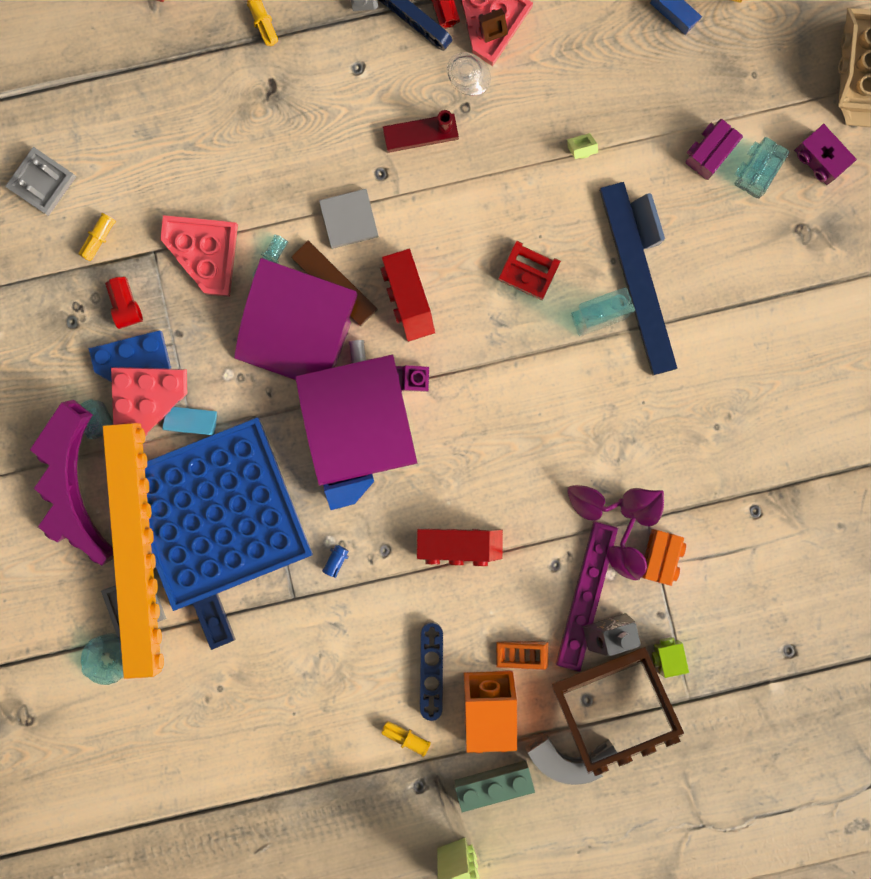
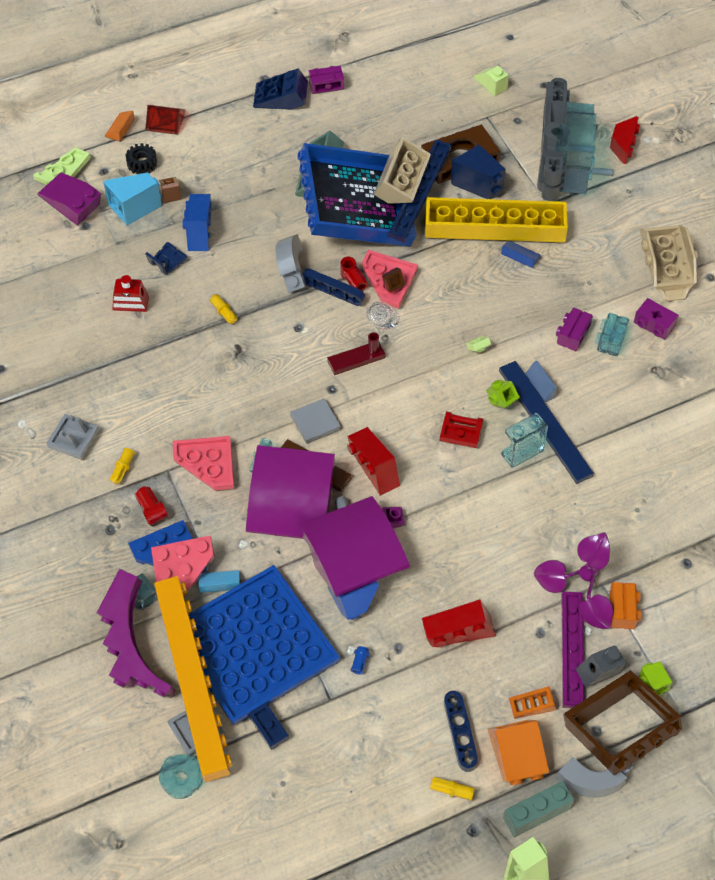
camera: 10 degrees left, 30 degrees down
(593, 232) = (502, 393): none -> lime brick

